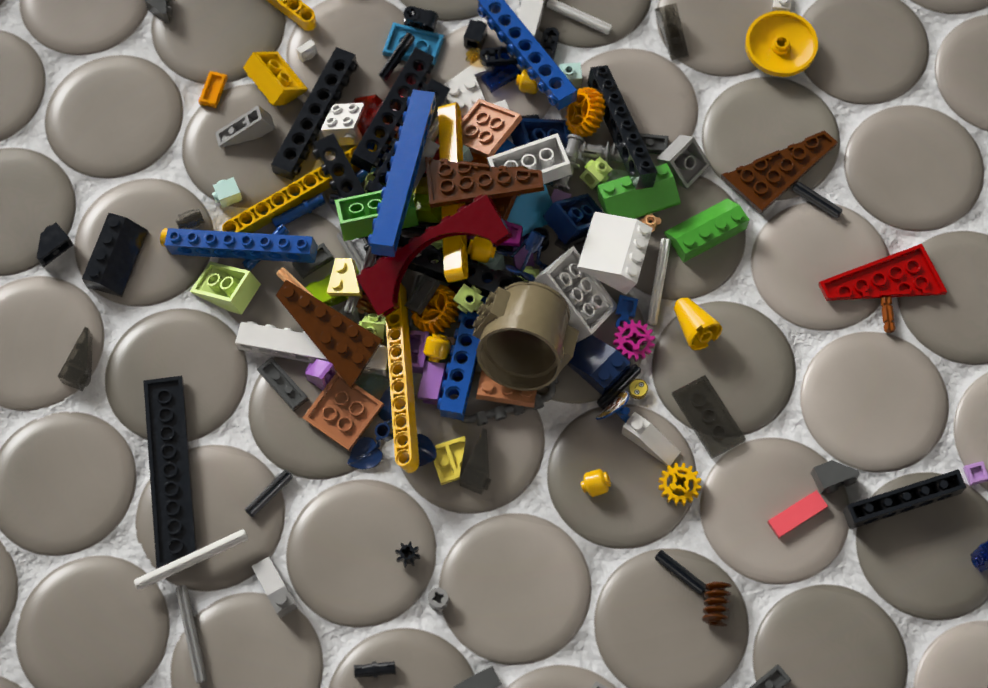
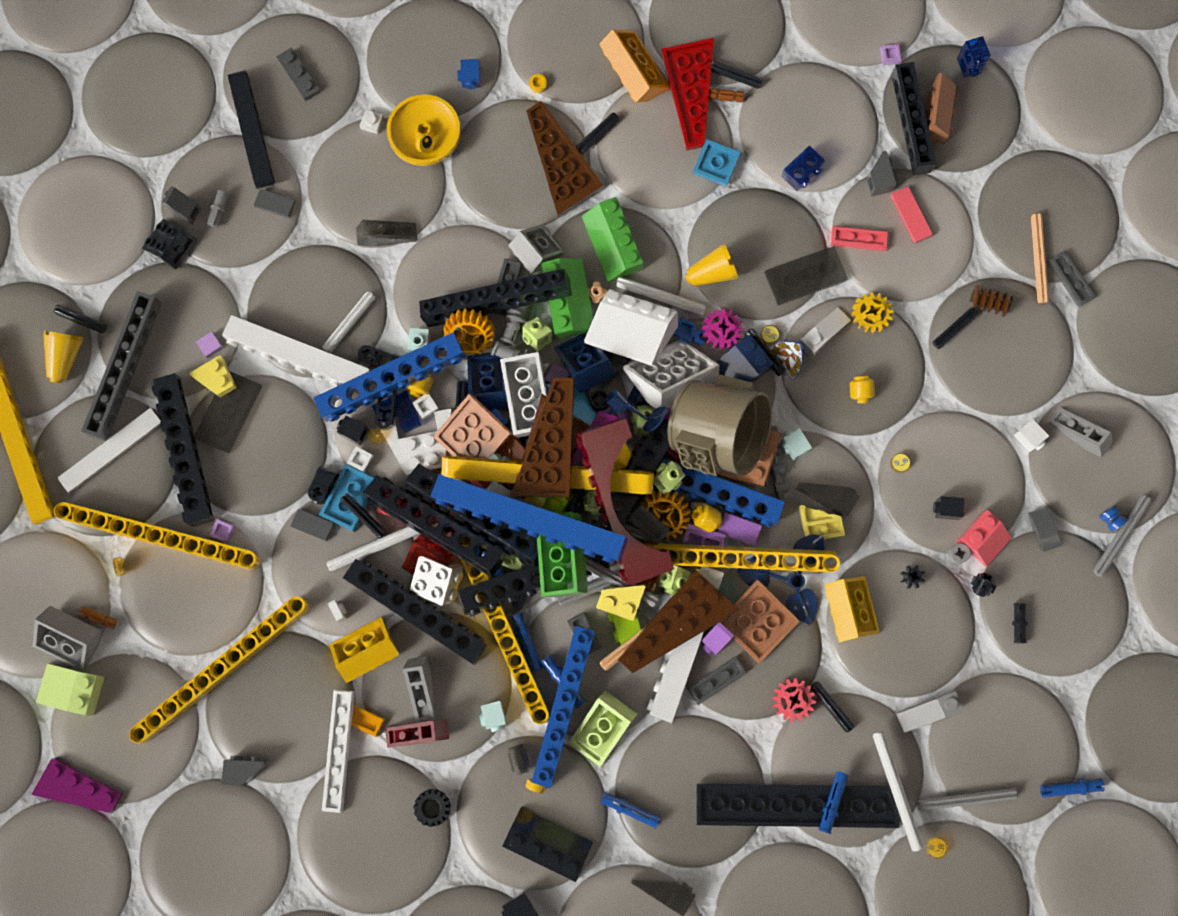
camera: 80 degrees left, 10 degrees up
(136, 147) = (419, 807): none -> black tyre
(141, 609) = (937, 847): none -> clear yellow tile
(152, 322) = (608, 799): none -> blue pin
(166, 497) = (833, 802): none -> blue pin
(183, 73) = (338, 751): none -> white tile
(204, 134) = (417, 733): none -> dark red slope
(272, 446) = (799, 689): none -> coral gear
(367, 67) = (372, 547): none -> white axle
(368, 499) = (852, 608): none -> yellow slope
(383, 19) = (312, 525): none -> dark grey tile
(409, 625) = (983, 584): none -> black gear
(449, 46) = (360, 459): none -> white plate
(458, 623) = (985, 537): none -> coral slope
(484, 583) = (948, 508): none -> black brick
(509, 91) = (425, 406): none -> white plate
(525, 532) = (900, 463): none -> tile
(527, 425) = (795, 444): none -> light aqua brick
(575, 661) = (1031, 436): none -> white brick
(760, 464) = (859, 238): none -> coral tile
(766, 45) = (425, 143): none -> yellow tile
(777, 654) = (1039, 258): none -> light nougat axle
(810, 313) = (716, 163): none -> dark azure plate
(826, 393) = (800, 166): none -> clear blue brick
(850, 76) = (469, 73): none -> blue brick
(857, 139) = (538, 83): none -> yellow tile
(898, 221) = (634, 65): none -> light orange slope
(913, 320) = (736, 74): none -> black axle
(921, 526) = (940, 108): none -> nougat slope

